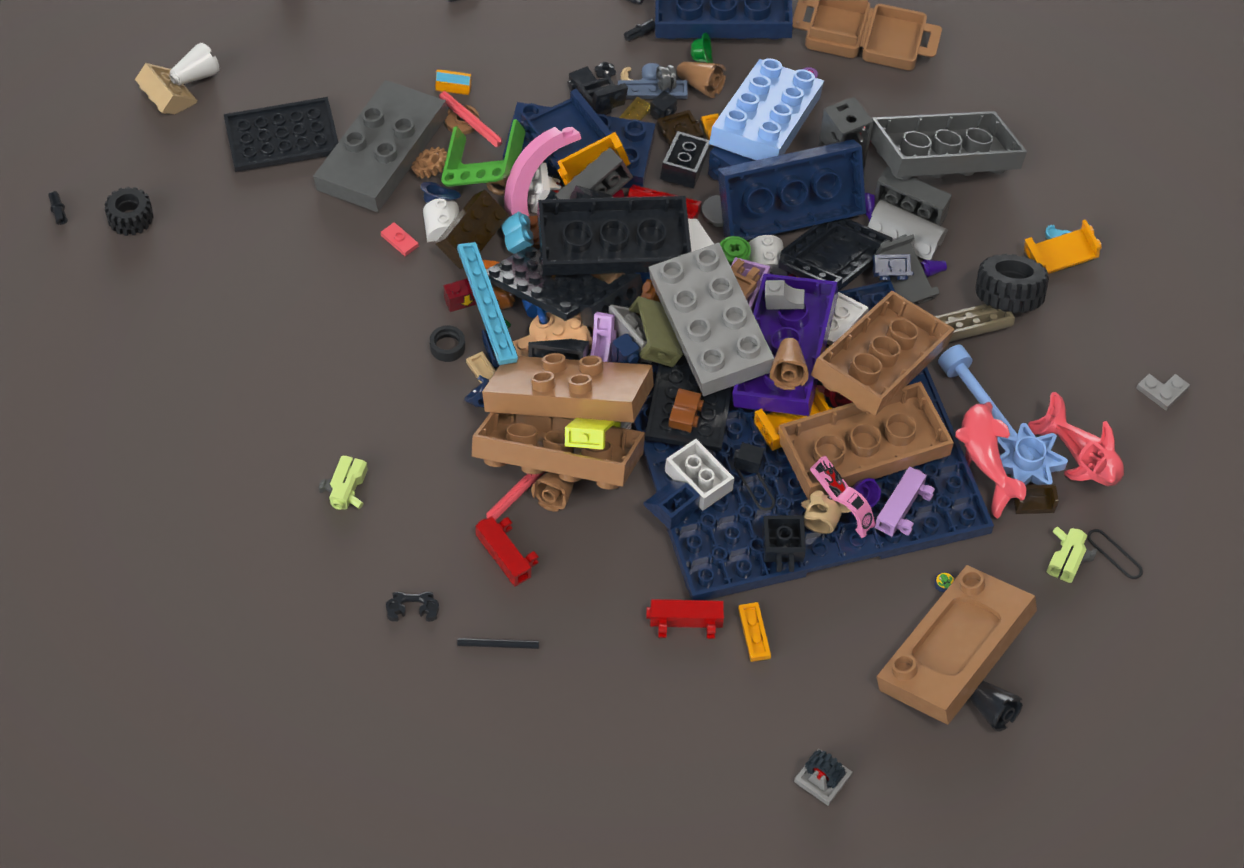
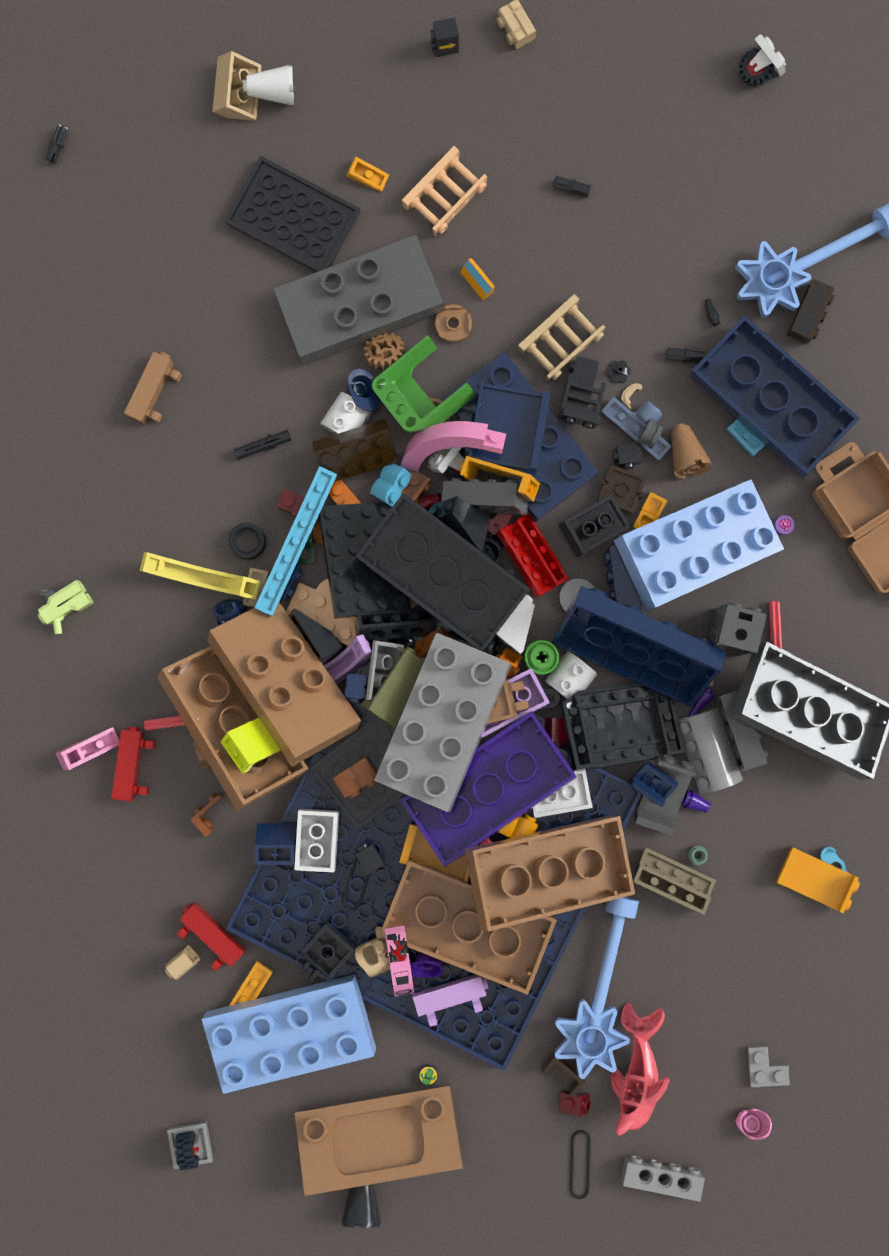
camera: 45 degrees right, 30 degrees up
(132, 221) = (98, 184): black tyre -> none
(276, 301) = (149, 388): none -> medium nougat brick
(310, 78) = (367, 174): none -> light orange slope
(364, 43) = (438, 173): none -> light nougat fence
(399, 239) = (298, 405): coral plate -> none
(402, 273) = (241, 451): none -> black pin
(429, 607) = (14, 740): black helmet -> none
(442, 387) = (200, 576): none -> light yellow arch
(460, 565) = (87, 749): none -> bright pink slope
(471, 119) = (455, 320): coral axle -> none
(498, 643) = (61, 835): black bar -> none
(532, 67) = (543, 333): none -> tan fence
(598, 546) = (204, 824): none -> dark orange bracket
(636, 110) = (599, 440): clear yellow plate -> none
(683, 644) = (182, 963): none -> tan brick
(702, 49) = (714, 426): green piece -> none
(730, 45) = (745, 438): none -> medium azure plate
(781, 296) = (520, 754): light grey arch -> none
(789, 365) = (459, 822): medium nougat cone -> none
(814, 626) = (289, 1034): none -> light blue plate
(970, 293) = (704, 855): none -> sand green plate
(980, 437) = (559, 1002): coral animal -> none
(1012, 283) = (755, 877): black tyre -> none
(1064, 513) = (577, 1105): none -> dark red bracket
(1073, 551) = (542, 1140): yellowish green piece -> none
(1196, 422) = (754, 1124): none -> bright pink hair
(1203, 499) = (690, 1190): none -> light grey brick

